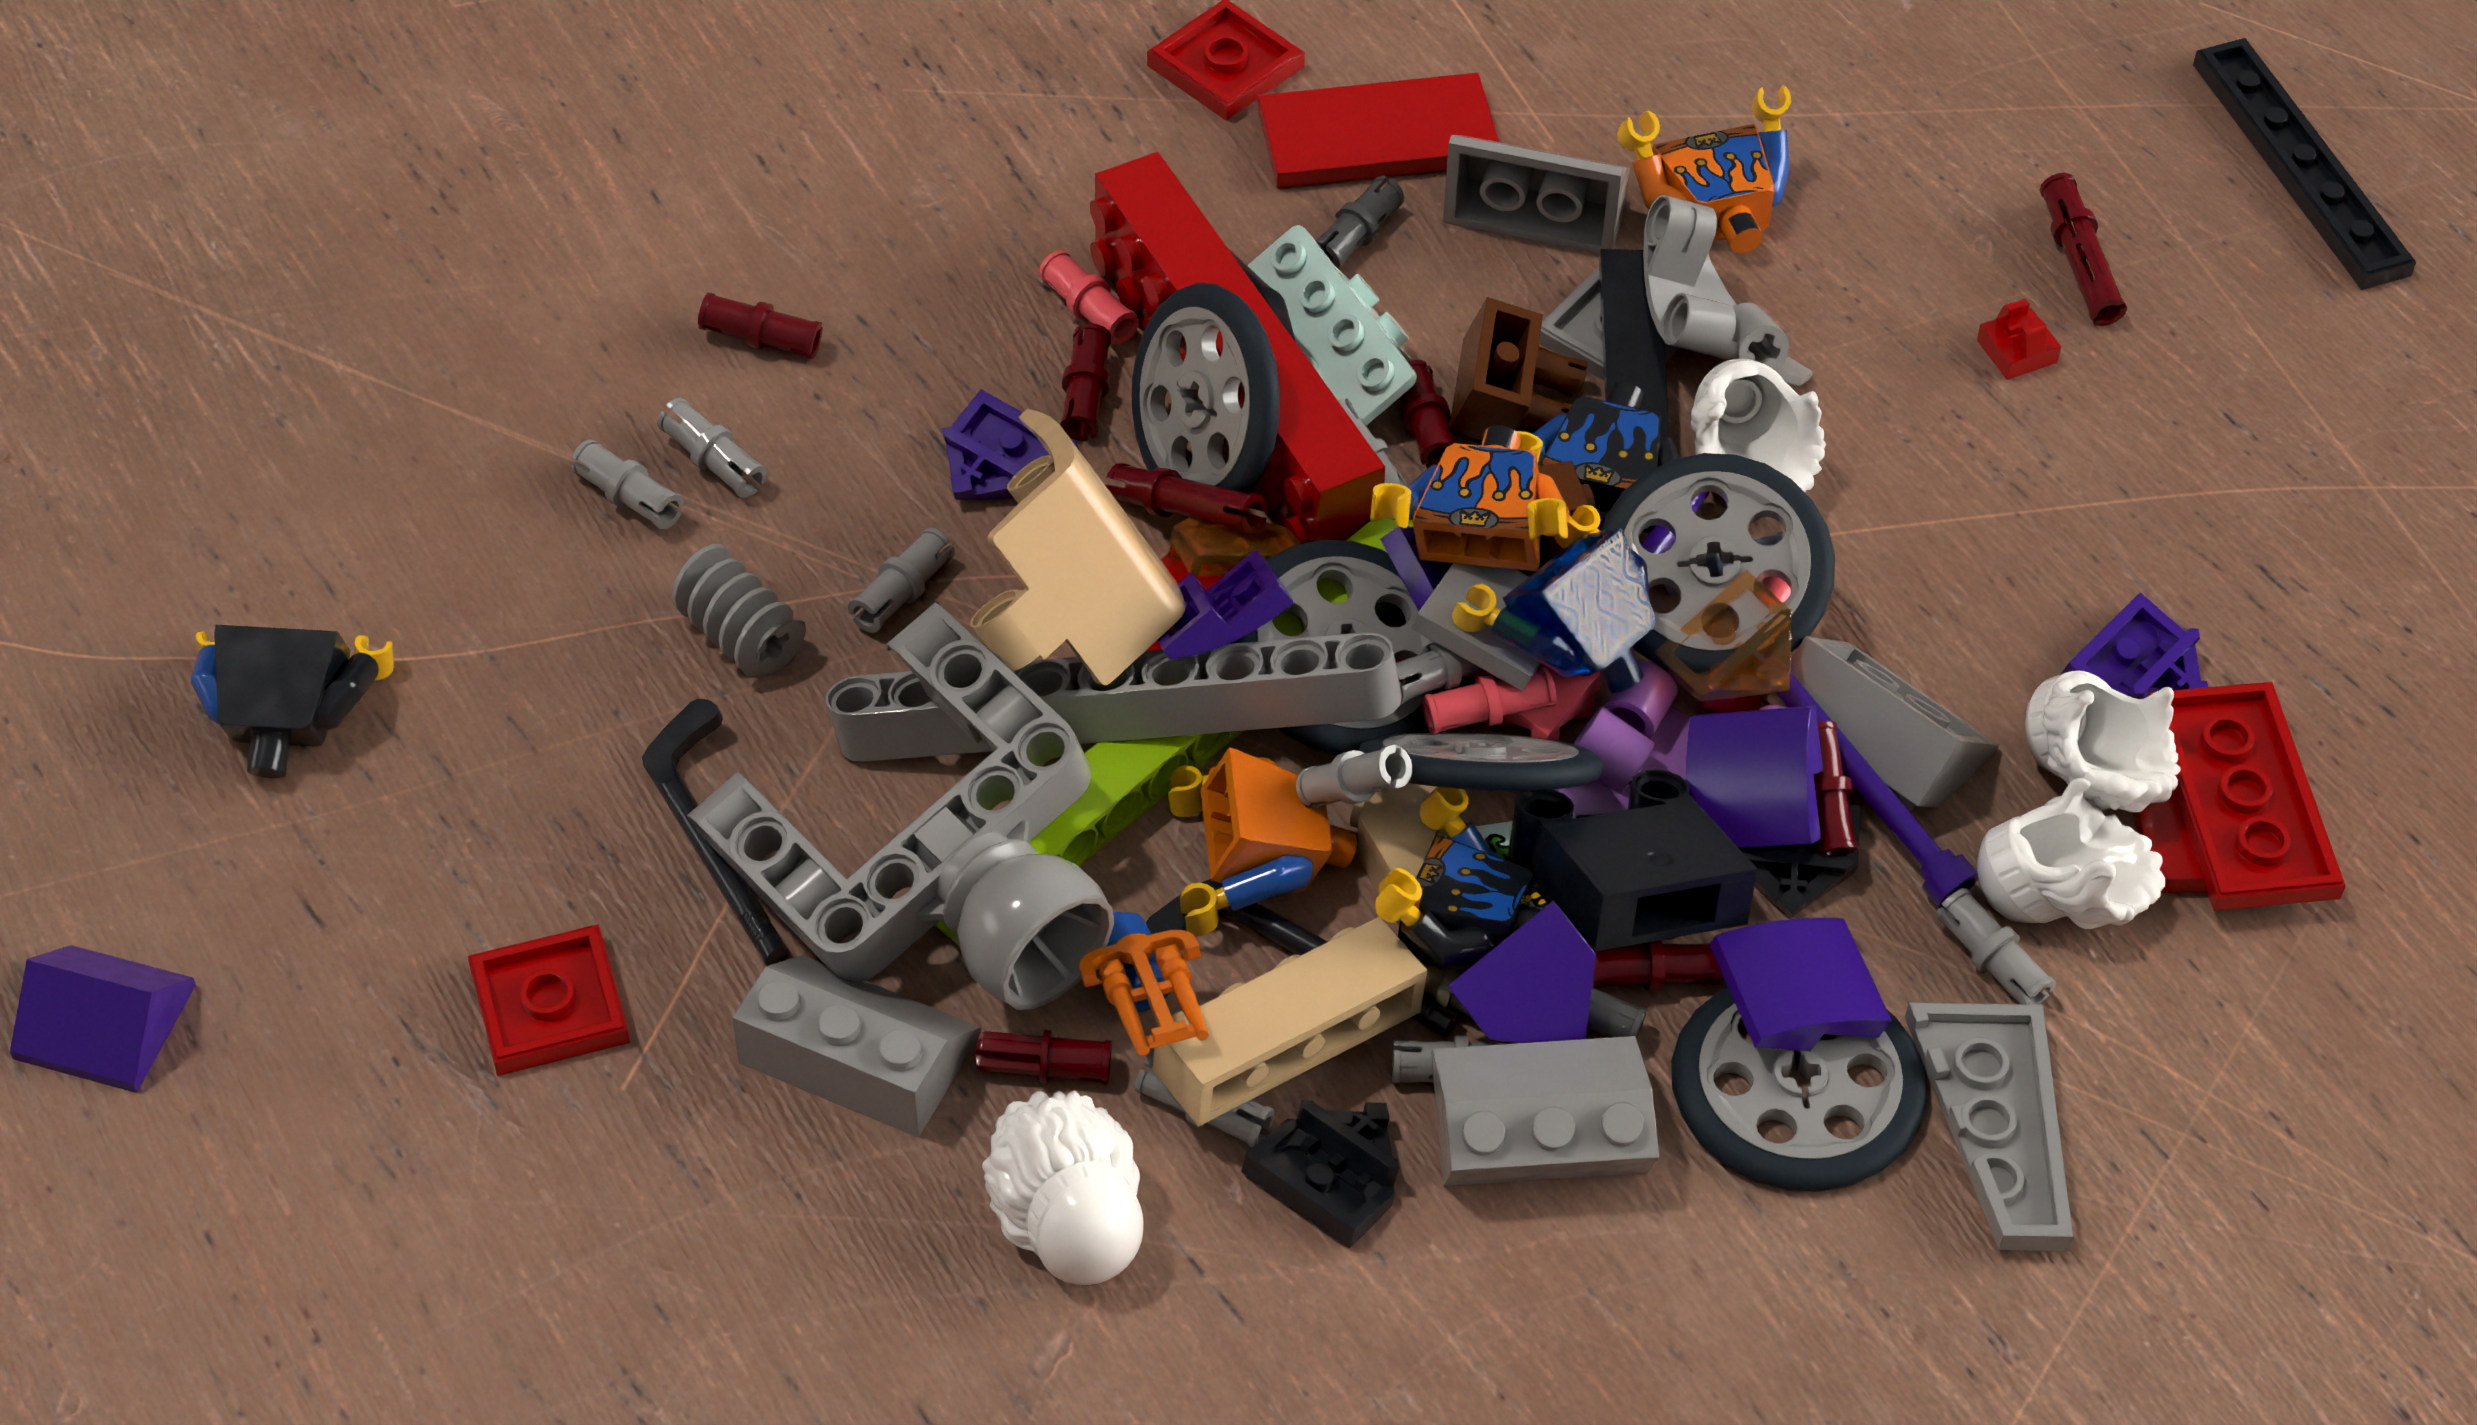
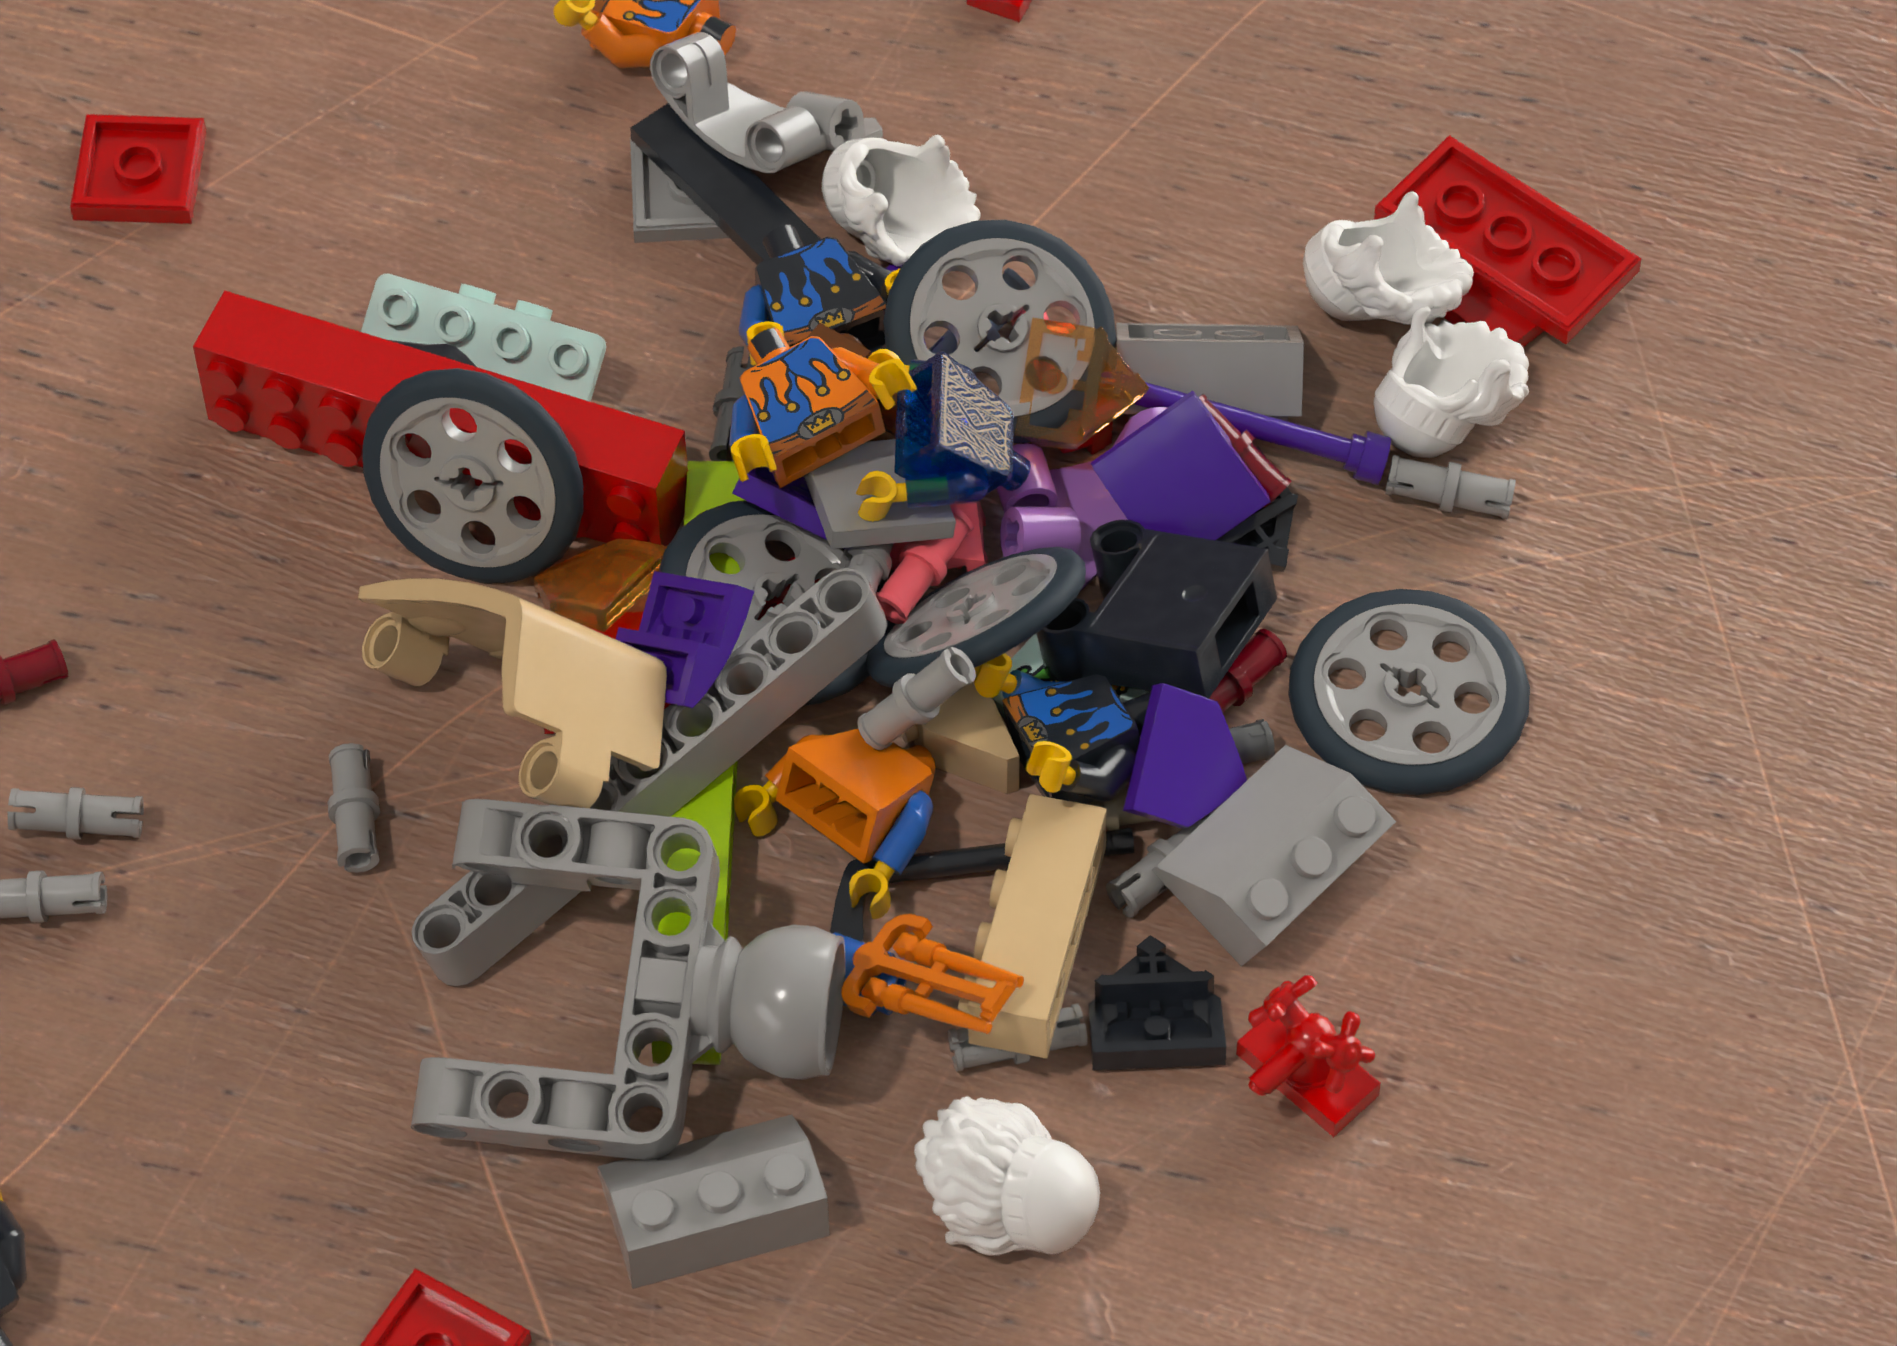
camera: 40 degrees left, 5 degrees up
(661, 762) = (313, 1055): black piece -> none
(737, 612) = (255, 934): light grey piece -> none
(988, 448) = (311, 641): dark purple slope -> none
(1044, 1056) = (867, 1097): dark red axle -> none
(1086, 381) = (325, 532): dark red pin -> none
(1088, 296) = (250, 458): coral pin -> none
(1167, 493) = (542, 563): dark red pin -> none
(1360, 219) = (401, 236): dark grey pin -> none
(1371, 128) = (331, 146): red tile -> none
(1406, 1287) = (1307, 1058): none -> red piece
(1427, 415) = (627, 367): dark red pin -> none
(1499, 369) = (659, 290): reddish brown brick -> none
(1534, 194) = (526, 113): light grey slope -> none
(1799, 982) = (1353, 615): dark purple slope -> none
(2002, 1112) = (1562, 601): light grey wing -> none
(2142, 652) = (1331, 182): dark purple slope -> none

